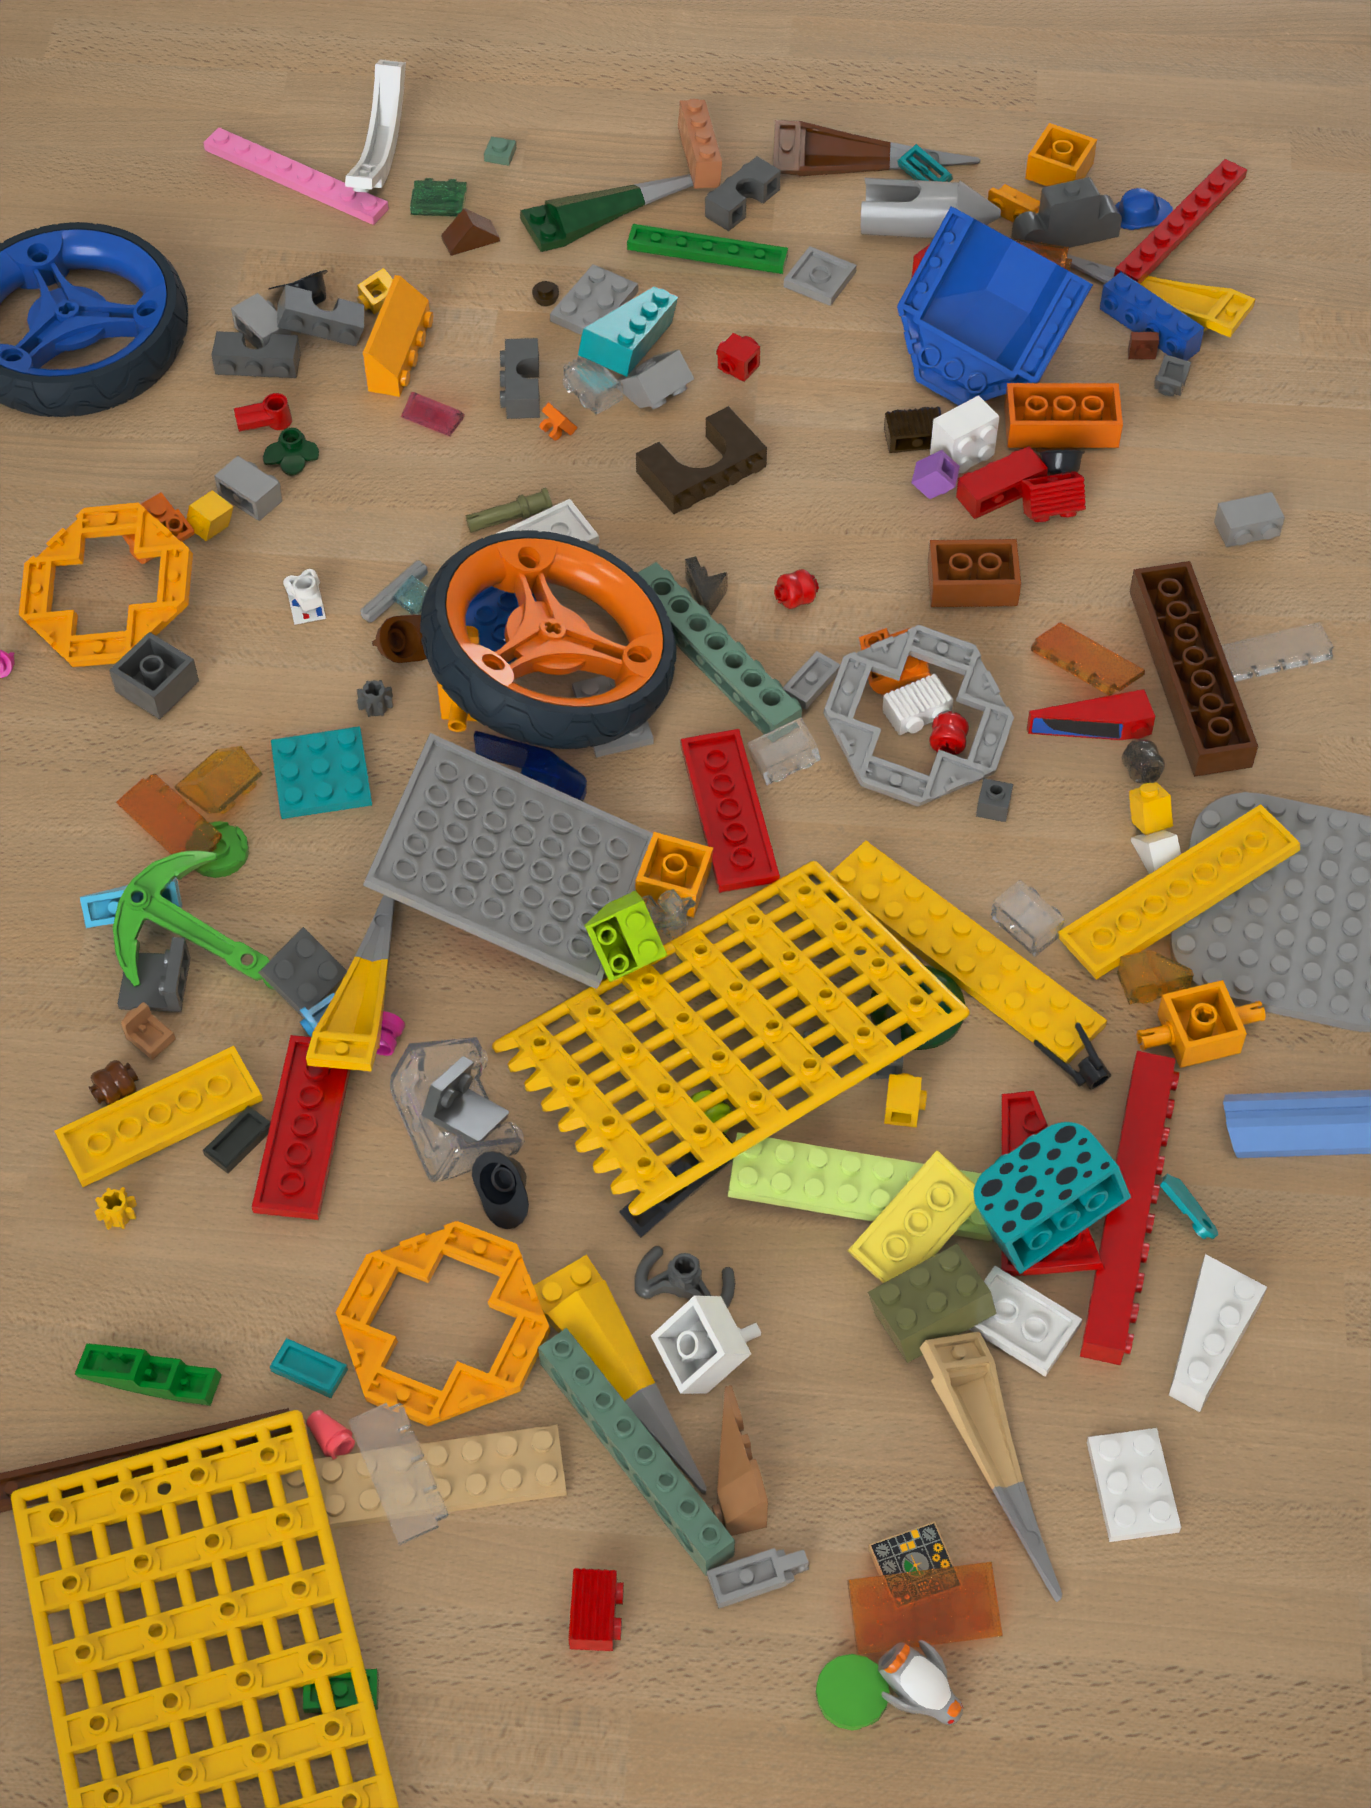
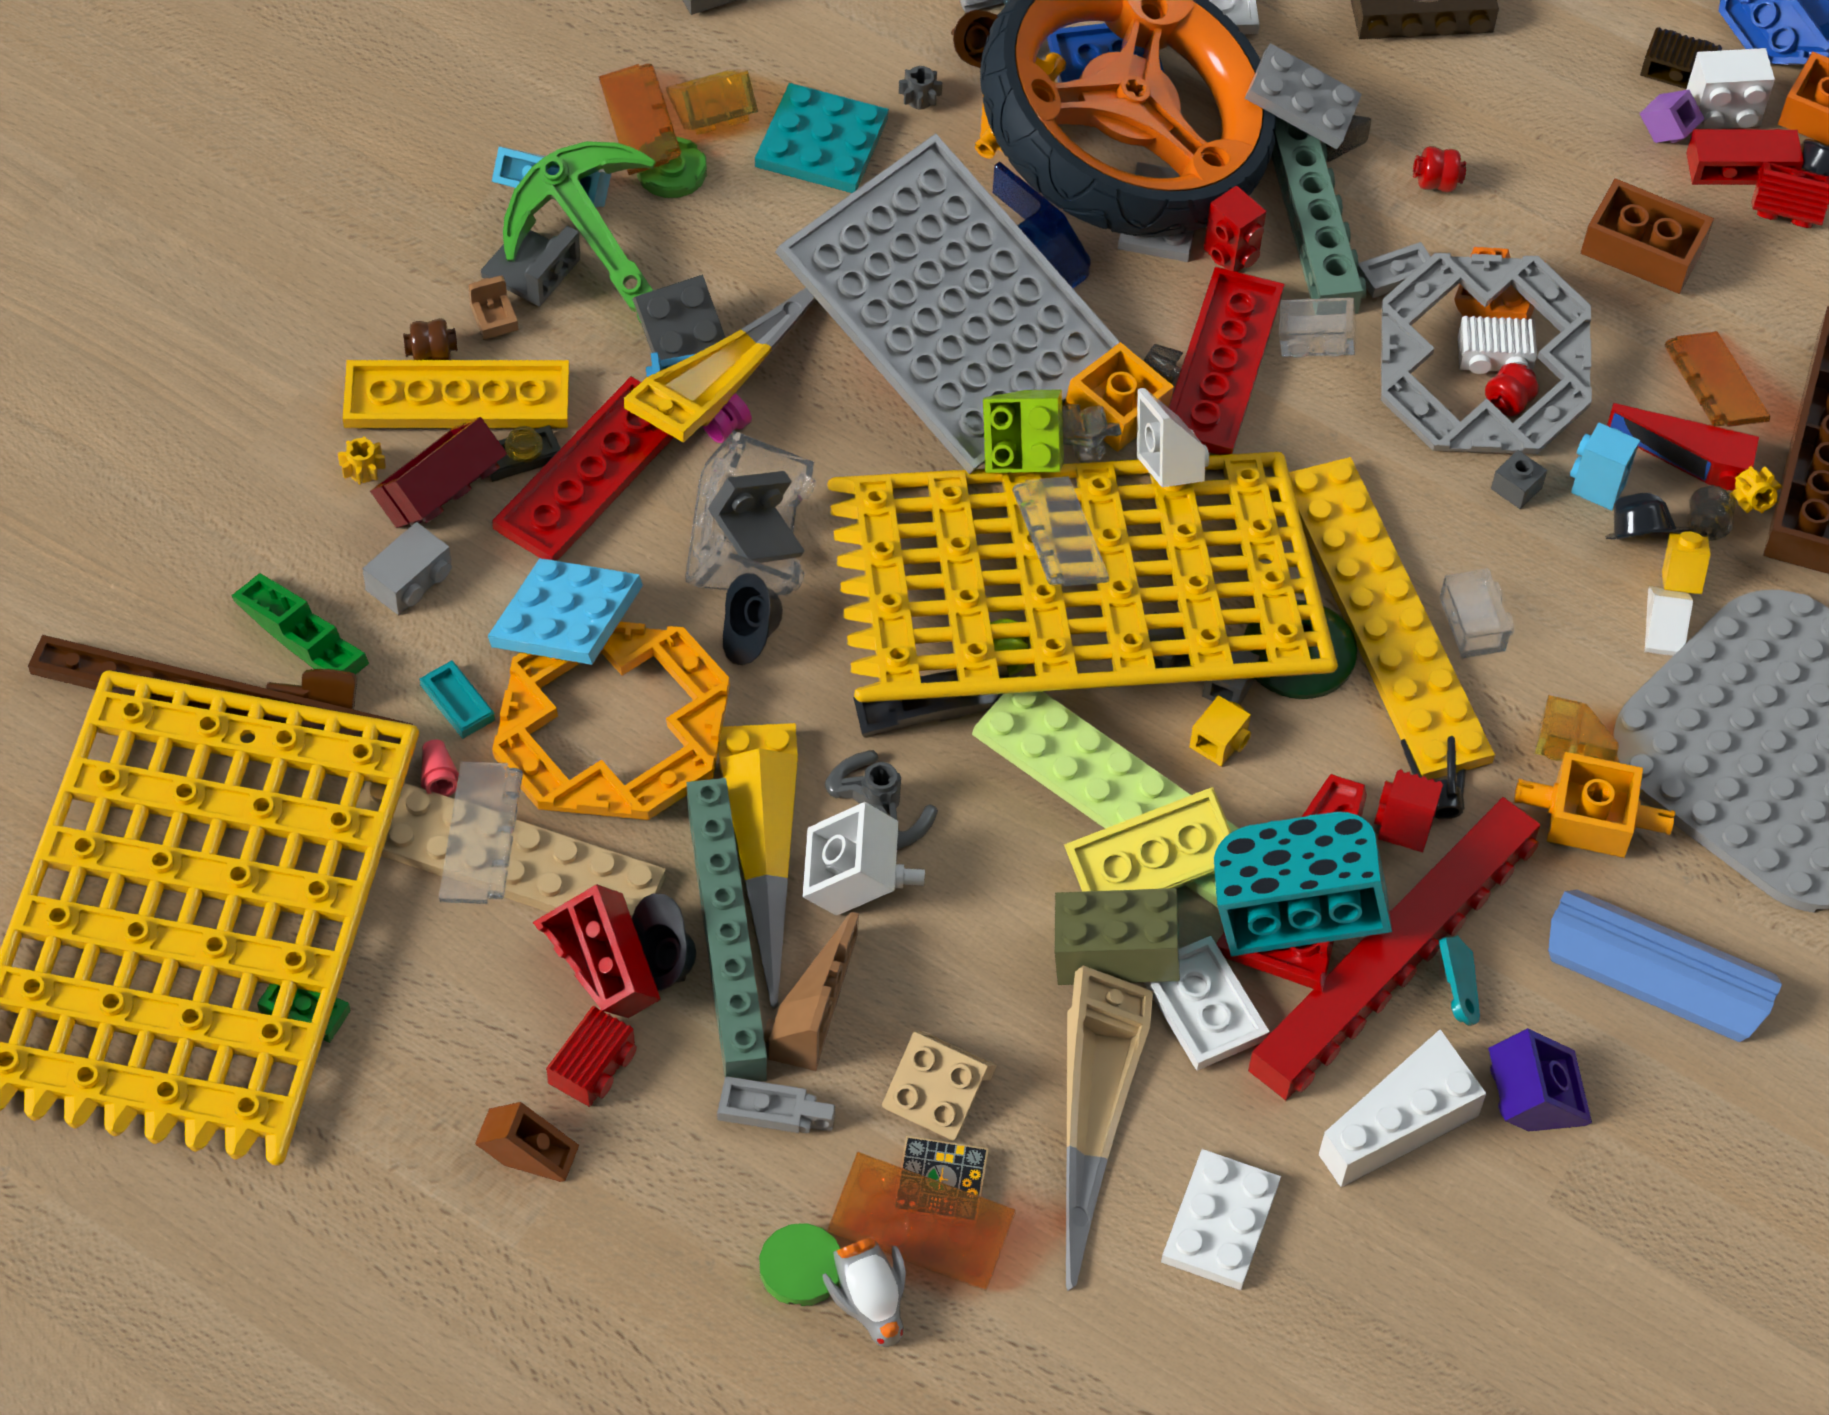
camera: 25 degrees right, 0 degrees up
(190, 1190) = (439, 474): none -> dark red piece
(195, 1414) = (324, 686): none -> reddish brown piece
(207, 1280) = (407, 568): none -> light grey brick
(240, 1132) = (523, 444): none -> clear yellow plate
(356, 1253) = (565, 611): none -> medium azure plate
(555, 1518) = (603, 950): none -> red wedge
(586, 1708) = (526, 1142): none -> dark orange slope
(594, 1489) = (664, 940): none -> black piece
(672, 578) = (1303, 96): none -> light grey plate
(681, 704) = (1234, 230): none -> red brick
(690, 830) = (1164, 361): none -> clear smoke piece
(700, 1003) = (1060, 532): none -> clear windscreen
(736, 896) = (1167, 444): none -> white slope
(867, 1490) = (936, 1084): none -> tan bracket
(1052, 761) = (1604, 465): none -> medium azure brick
(1079, 1094) = (1408, 810): none -> red brick
(1102, 788) = (1642, 515): none -> black piece
(1166, 729) = (1756, 489): none -> yellow gear
(1179, 891) = (1661, 659): yellow plate -> none
(1290, 1258) = (1538, 1083): none -> dark purple slope

